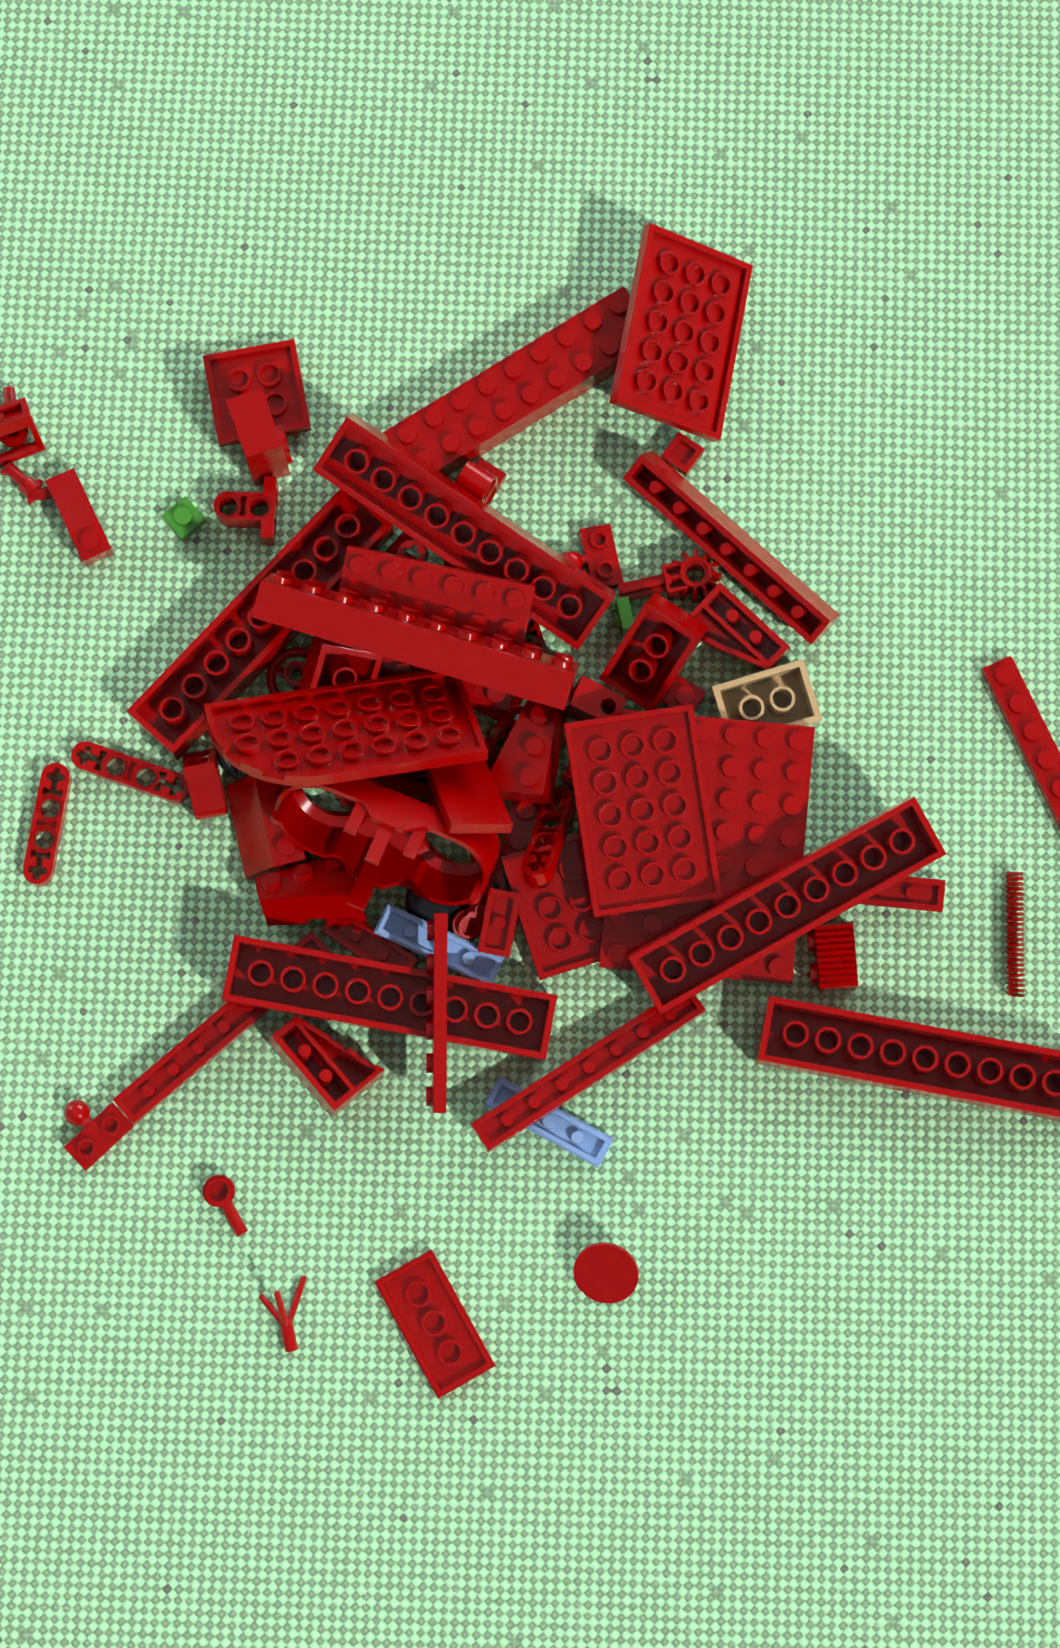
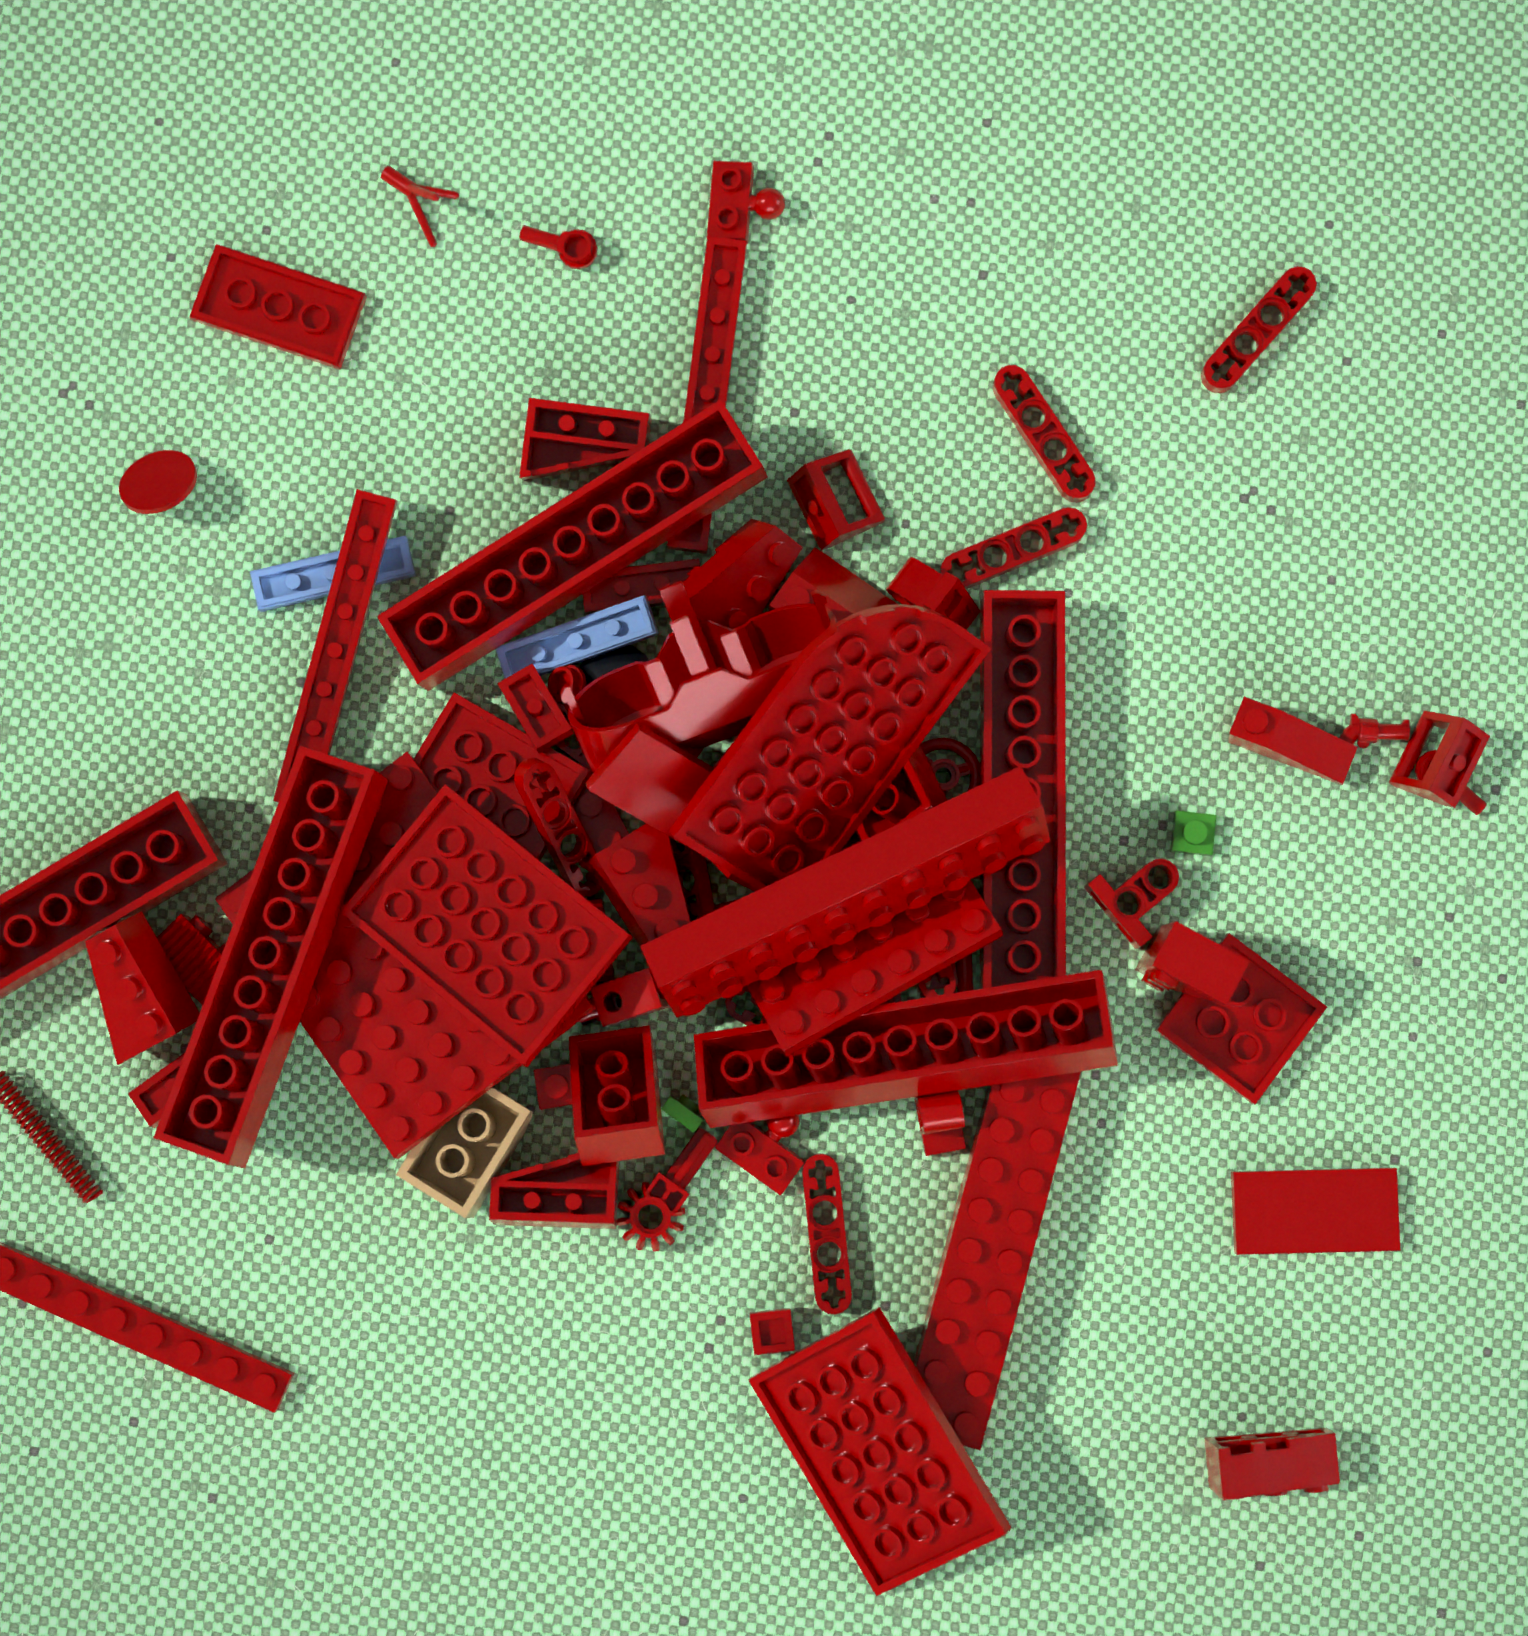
camera: 140 degrees right, 5 degrees up
(218, 898) = (820, 503): none -> red tile
(315, 256) = (1315, 1211): none -> red tile
(437, 998) = (520, 573): red plate -> none
(468, 146) = (1272, 1463): none -> red wedge
(602, 481) = (822, 1233): none -> red beam
(731, 546) = (637, 1275): red brick -> none
(882, 960) = (138, 987): none -> red wedge

